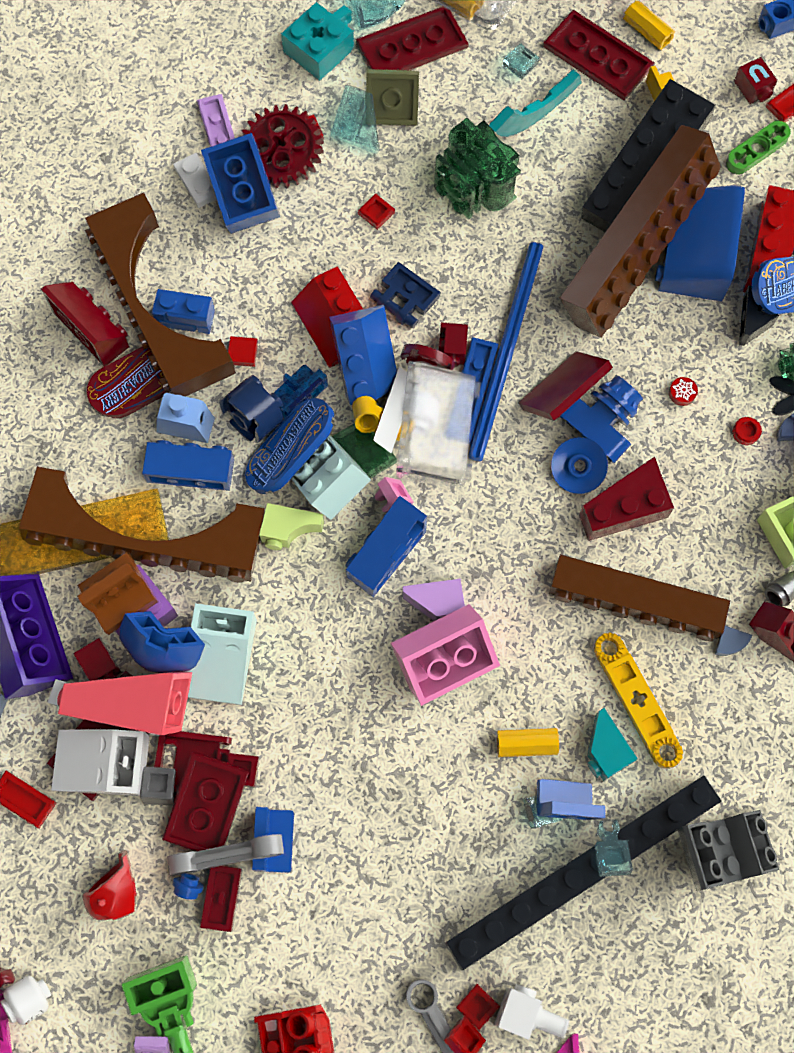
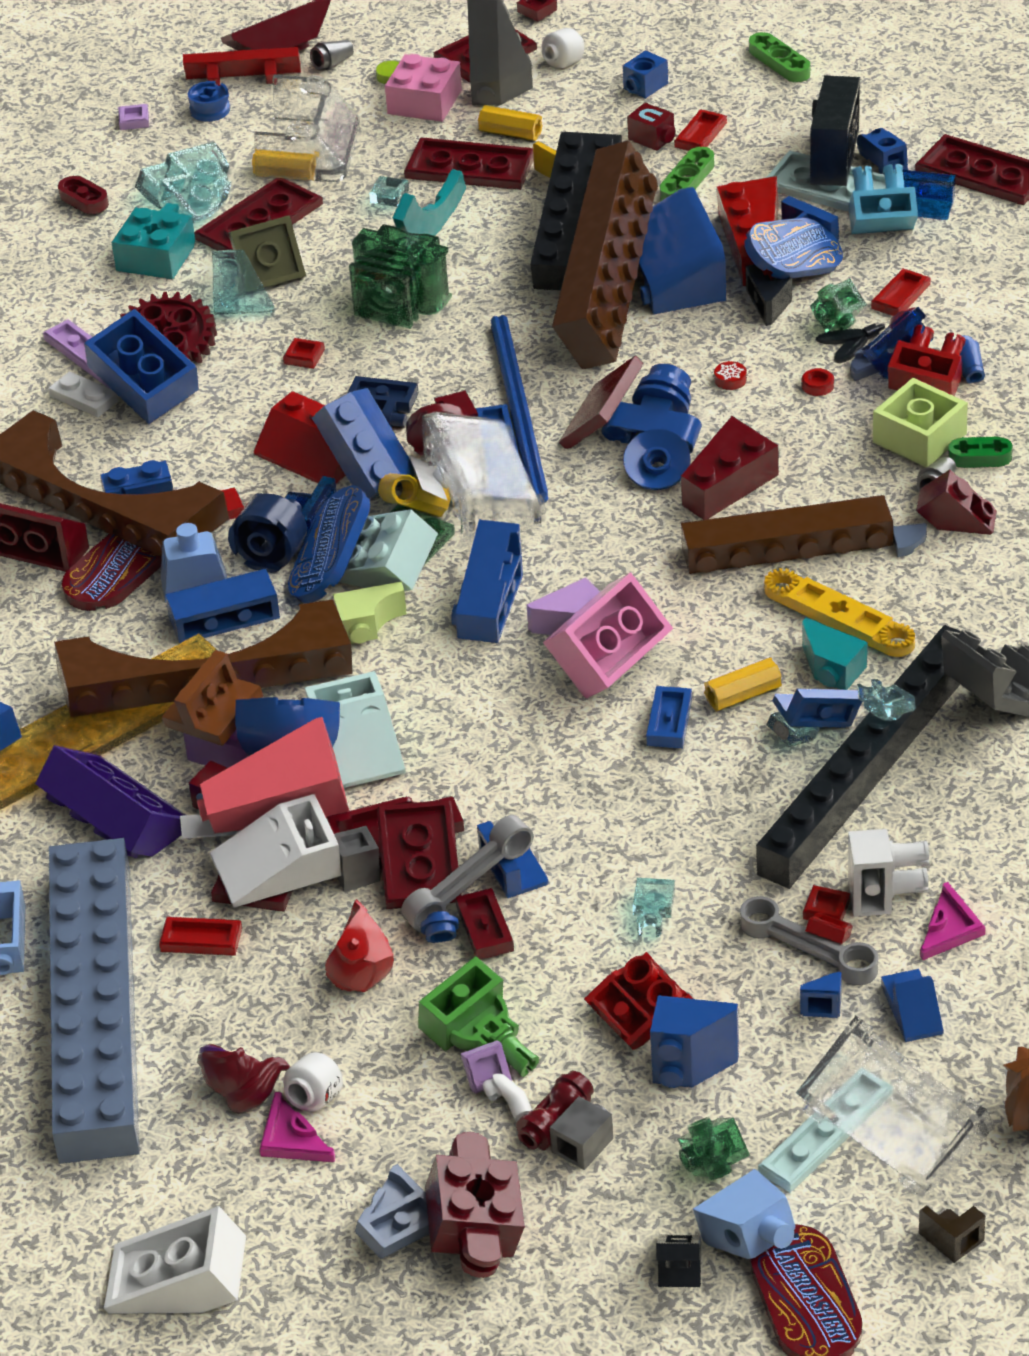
camera: 20 degrees left, 30 degrees down
(353, 939) = (653, 902): none -> clear light blue plate
(390, 490) = (460, 548): bright pink tile -> none
(457, 749) = (669, 717): none -> blue plate

